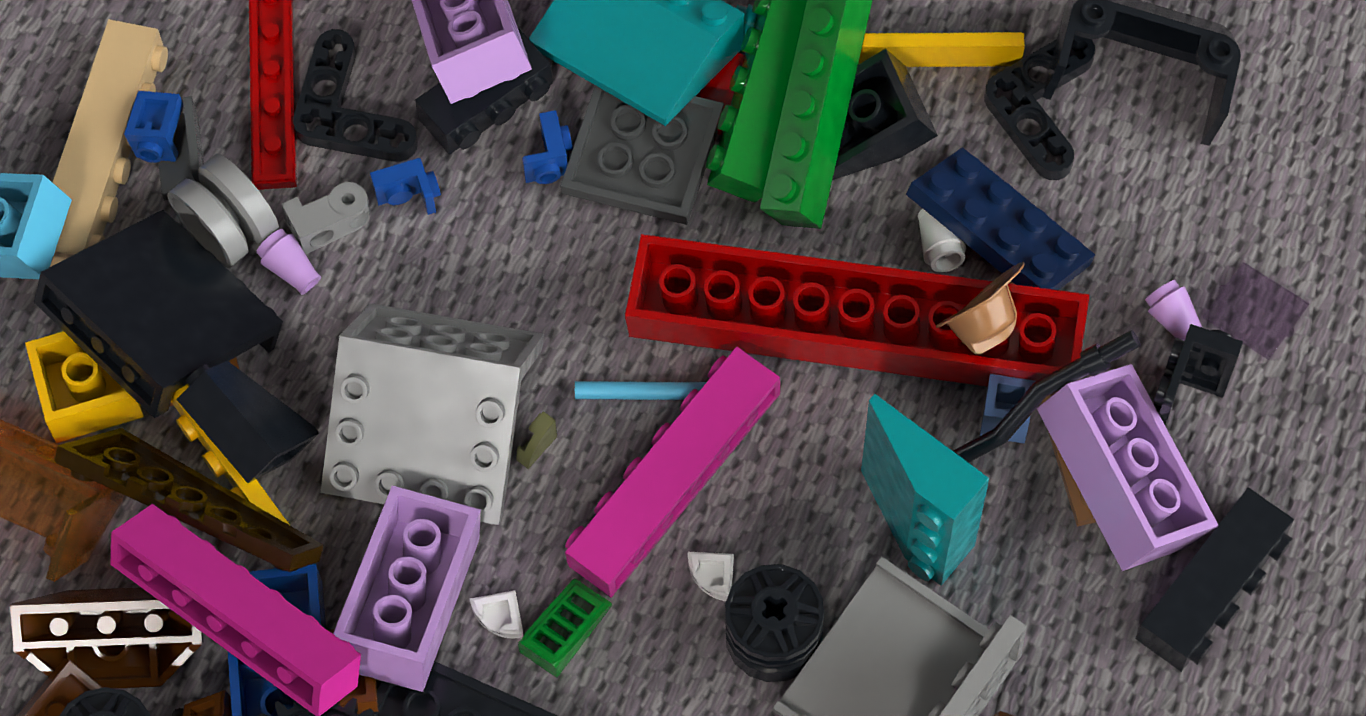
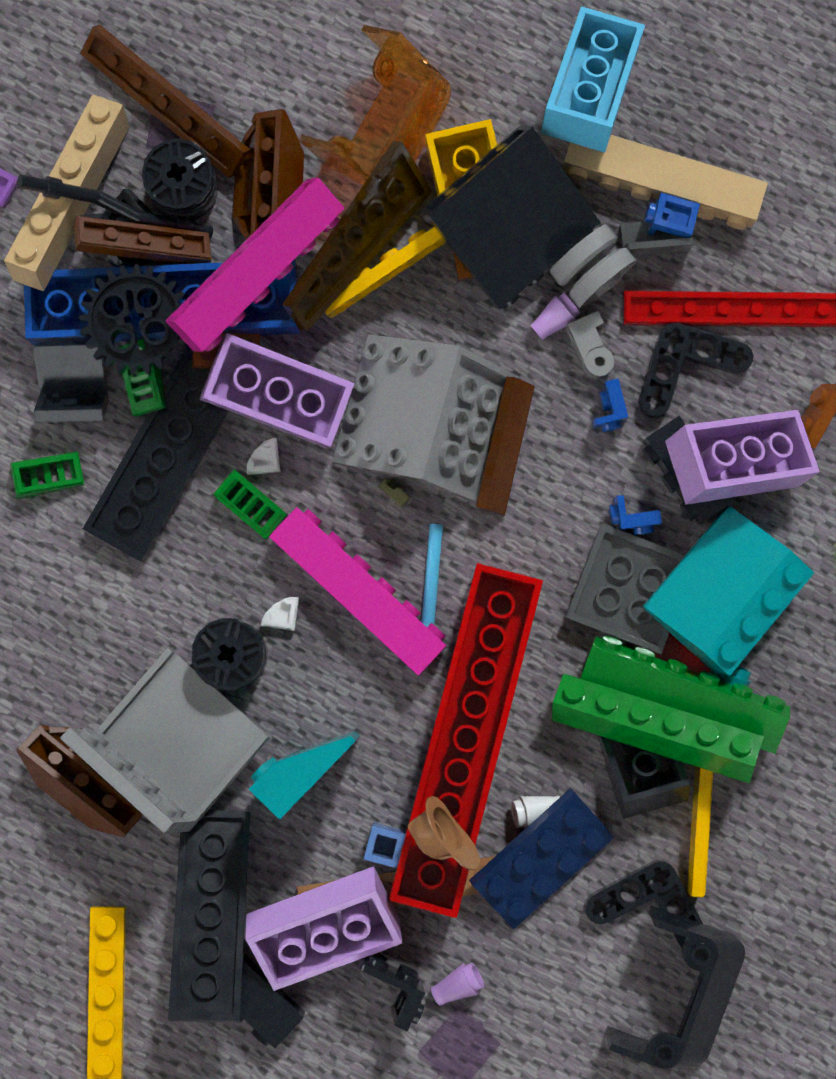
camera: 90 degrees right, 20 degrees up
(244, 420) = (412, 278): black slope -> none
(464, 308) = (505, 445): none -> reddish brown tile
(1091, 361) = (389, 910): black bar -> none
(1139, 608) = (210, 919): none -> black plate

